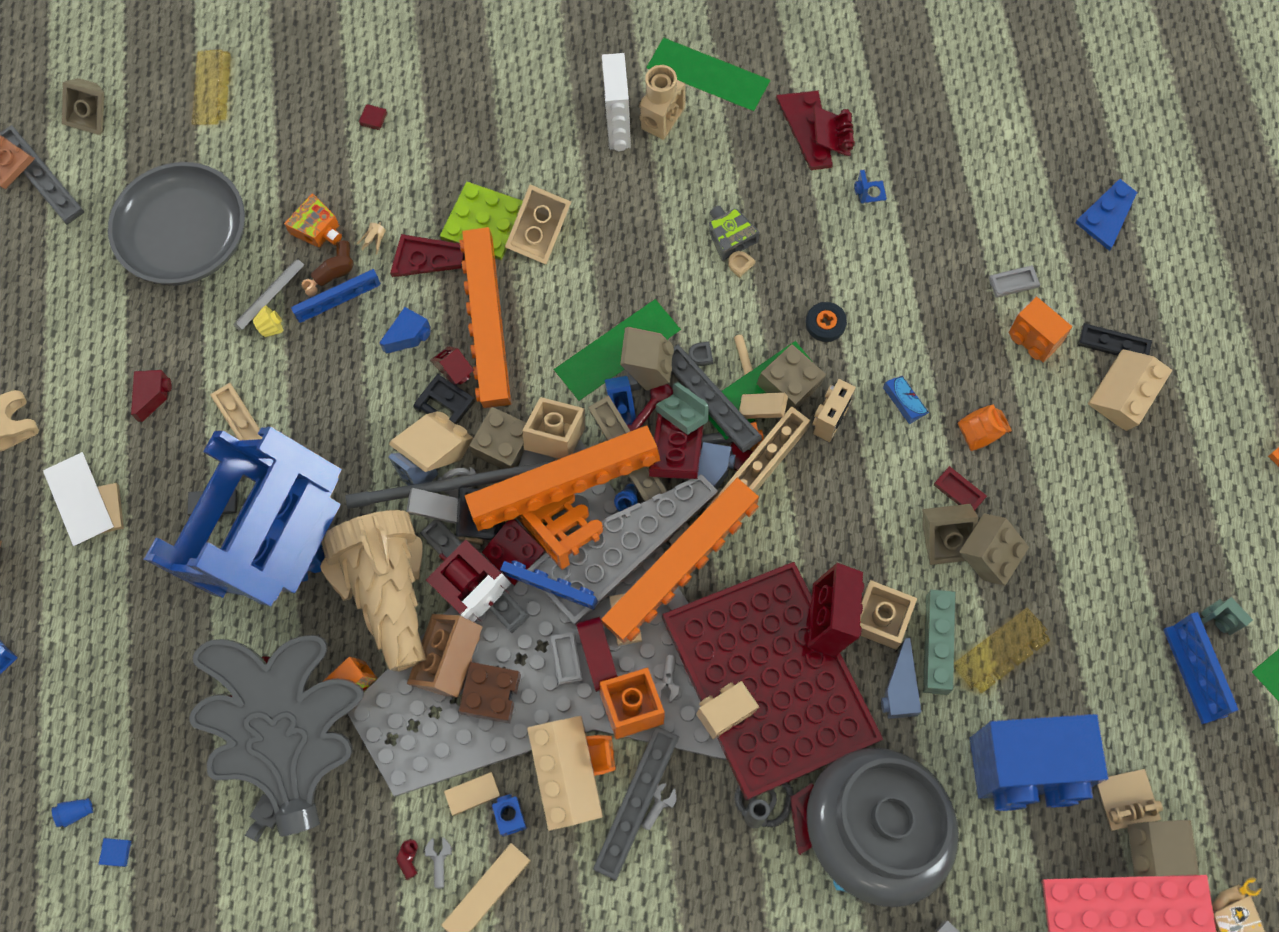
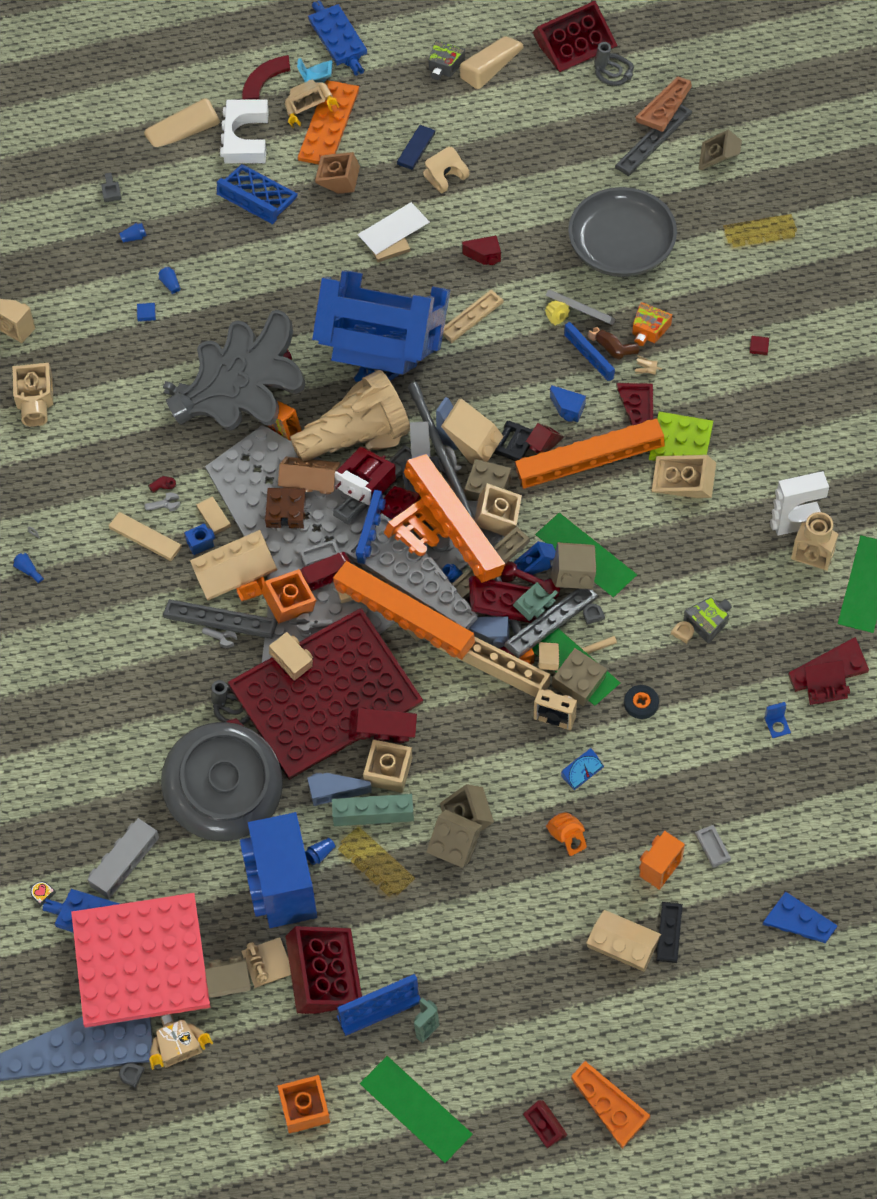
camera: 80 degrees right, 10 degrees down
(959, 489) = (507, 819): dark red tile -> none
(983, 711) = (319, 851): none -> blue cone
(1149, 731) = (322, 968): none -> dark red slope

